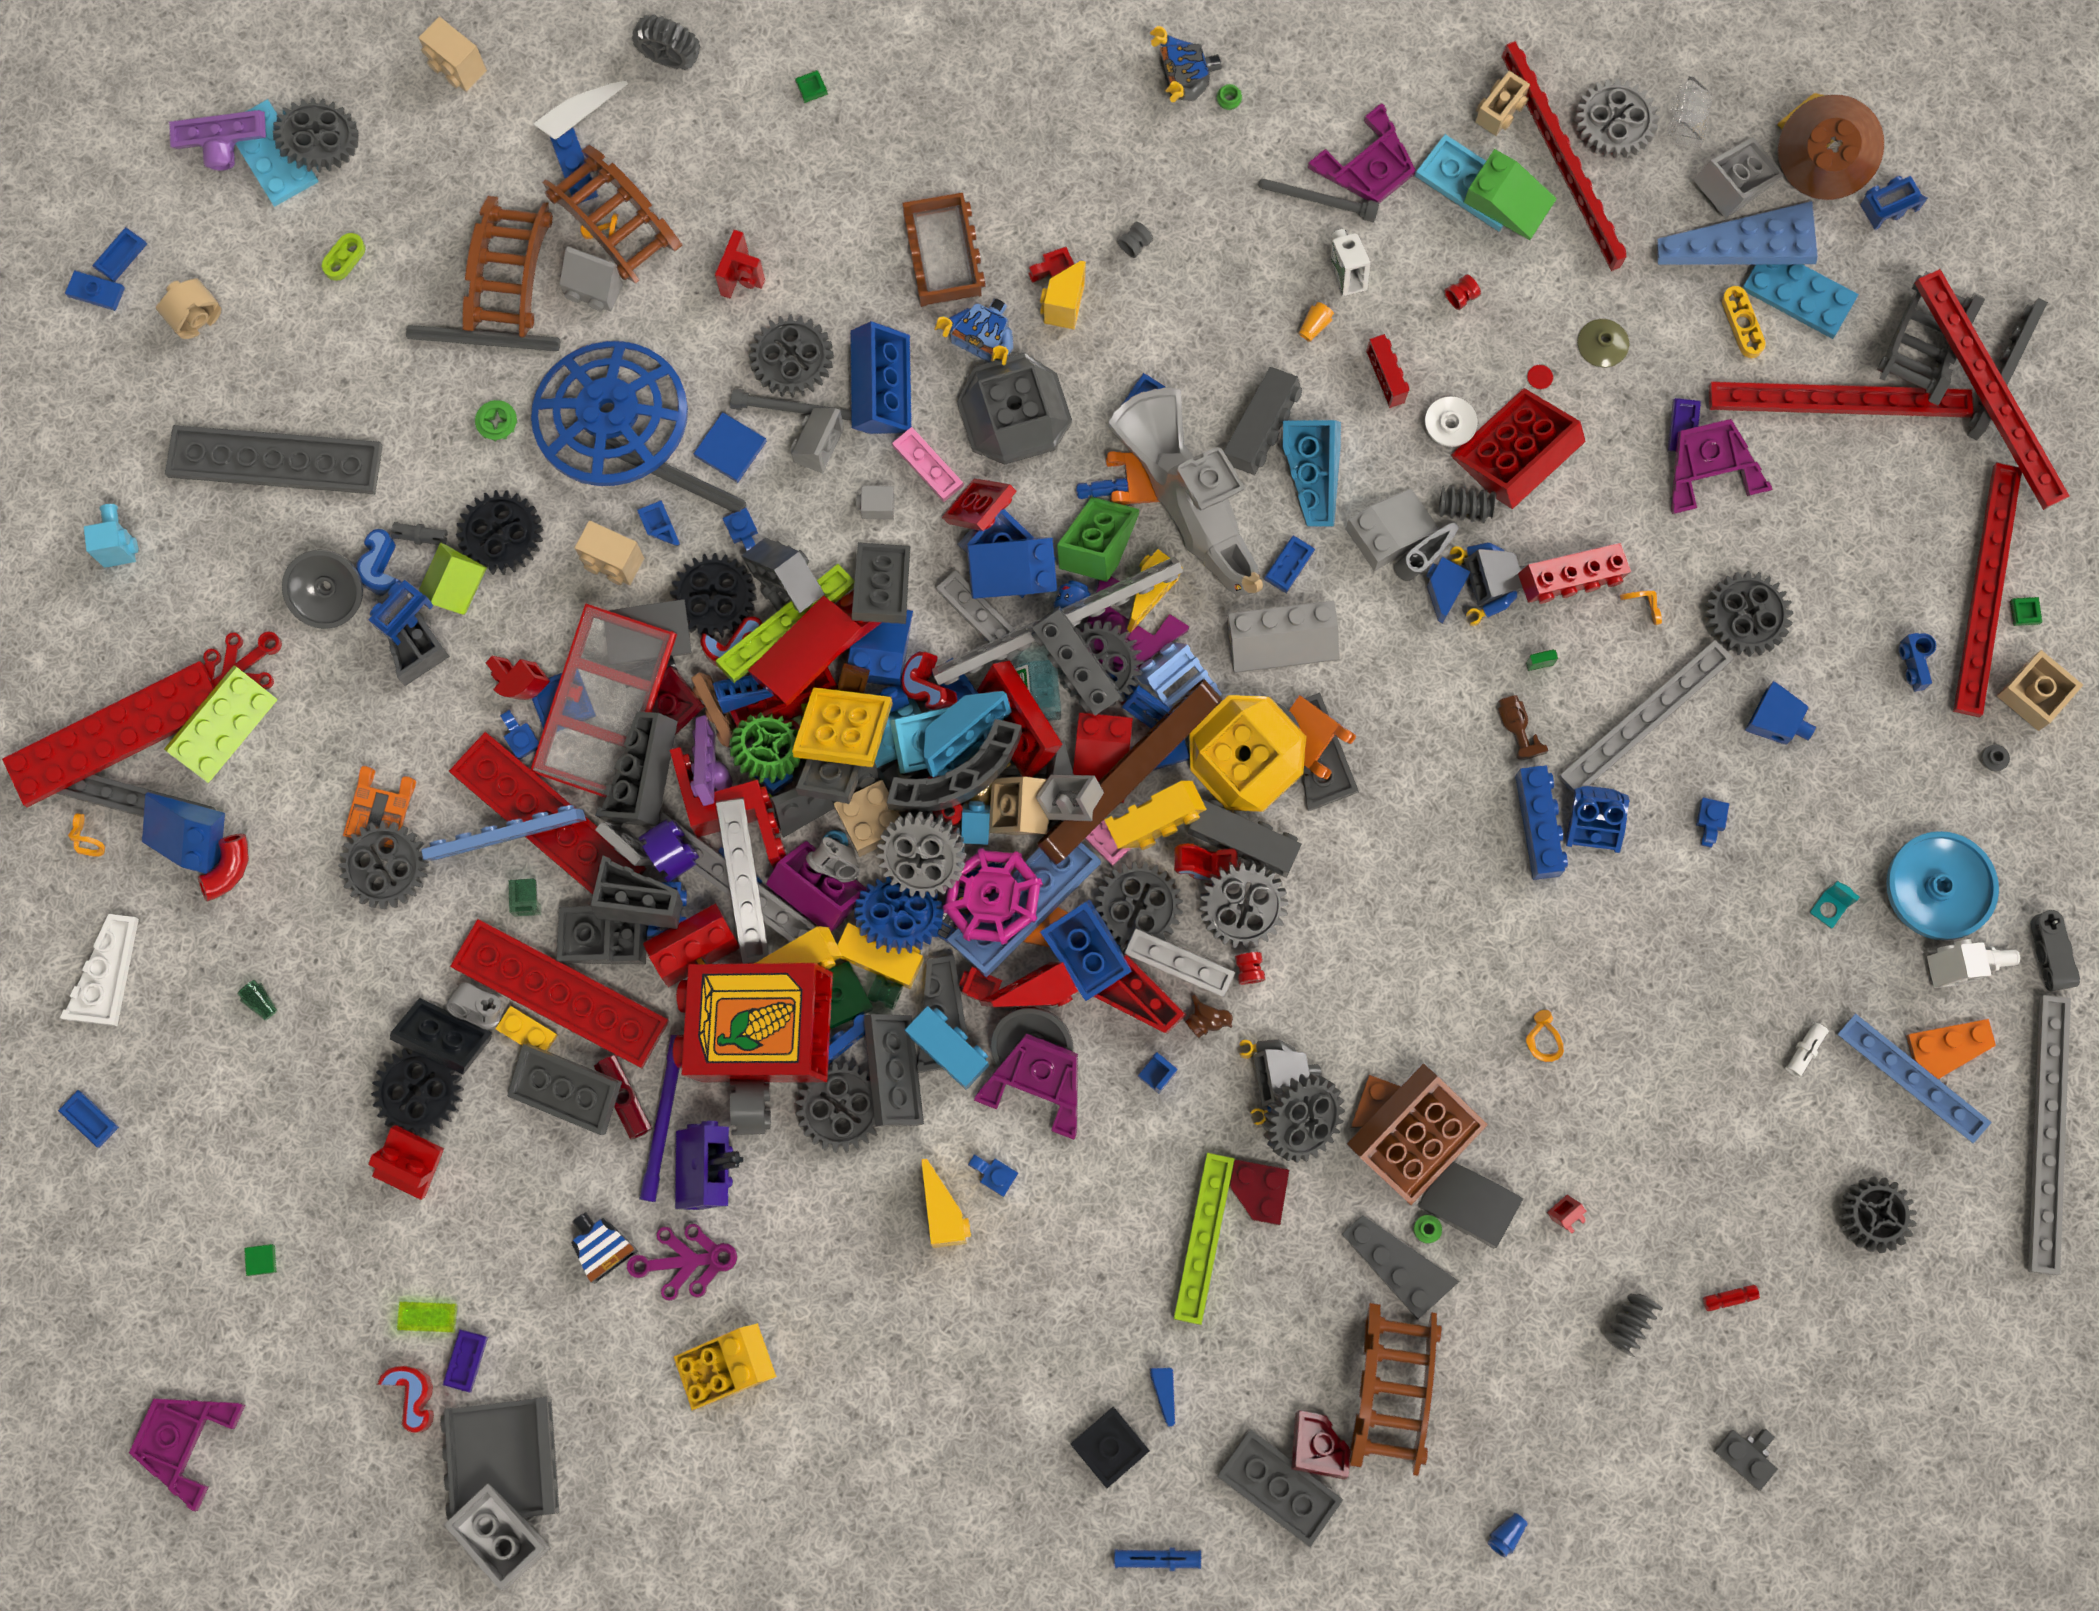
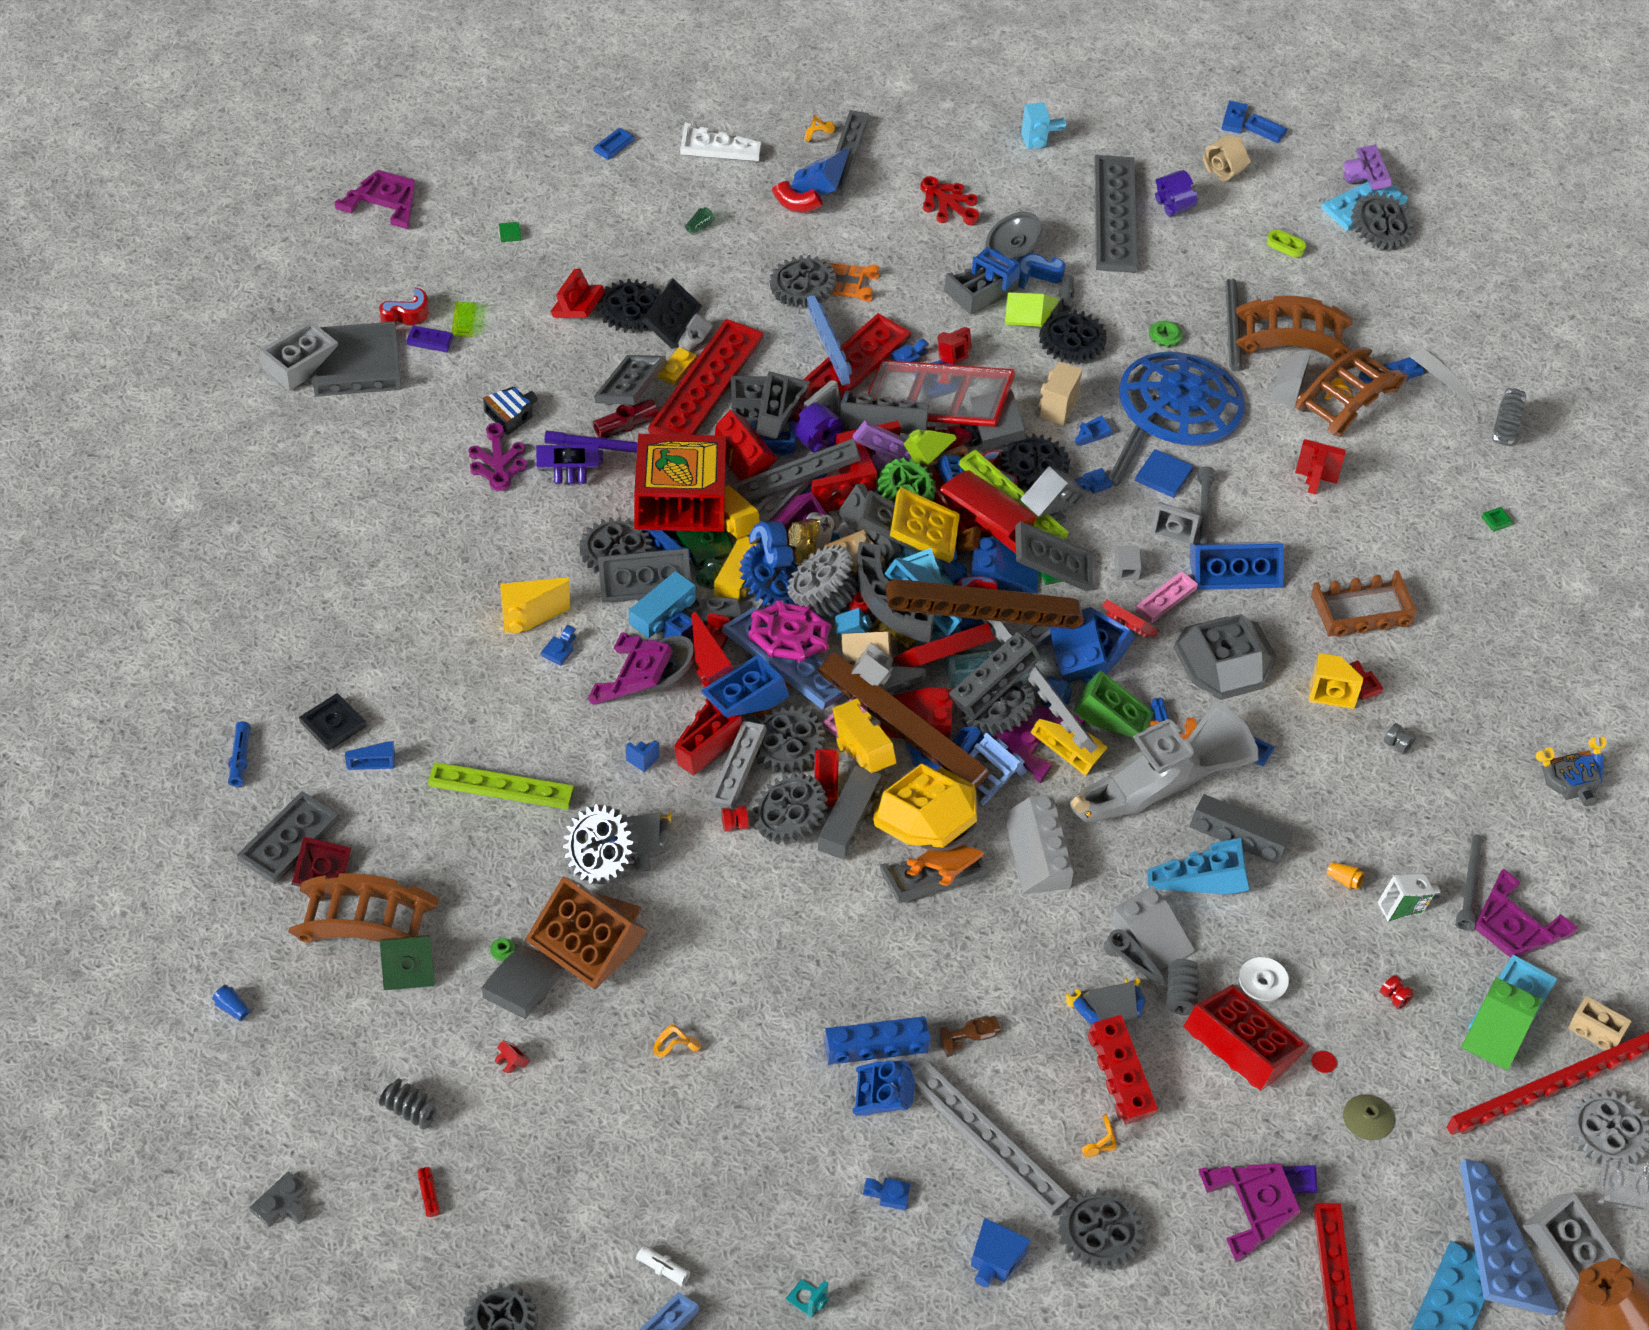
camera: 85 degrees right, 25 degrees down
(108, 735) = (894, 137): red plate -> none
(220, 724) = (904, 189): lime plate -> none
(251, 378) = (1176, 192): none -> dark purple brick
(452, 54) = (1466, 290): tan brick -> none
(523, 898) = (779, 353): clear green panel -> none
(706, 715) = (927, 445): none -> lime slope
(724, 1366) = (416, 483): yellow slope -> none
(748, 1107) = (614, 486): dark grey brick -> none
(808, 340) = (1239, 510): dark grey gear -> none
(866, 875) = (804, 537): none -> clear yellow plate
(869, 907) = (774, 540): none -> blue animal
(978, 1028) = (679, 626): none -> blue panel
(980, 331) = (1292, 627): torso -> none
(988, 664) = (984, 604): none -> reddish brown beam
(1207, 1018) = (689, 787): reddish brown animal -> none
(1233, 91) = (1561, 808): bright green plate -> none
(1260, 1190) = (541, 828): dark red plate -> none
(1289, 564) = (1108, 853): blue plate -> none
(1387, 370) = (1305, 927): red piece -> none
(1407, 1273) = (466, 932): dark grey wing -> none
(1445, 585) = (1097, 970): blue slope -> none
(1458, 1335) = (407, 962): none -> dark green plate
(1542, 660) = (1035, 1047): green tile -> none
(1747, 312) = (1419, 1232): yellow beam -> none

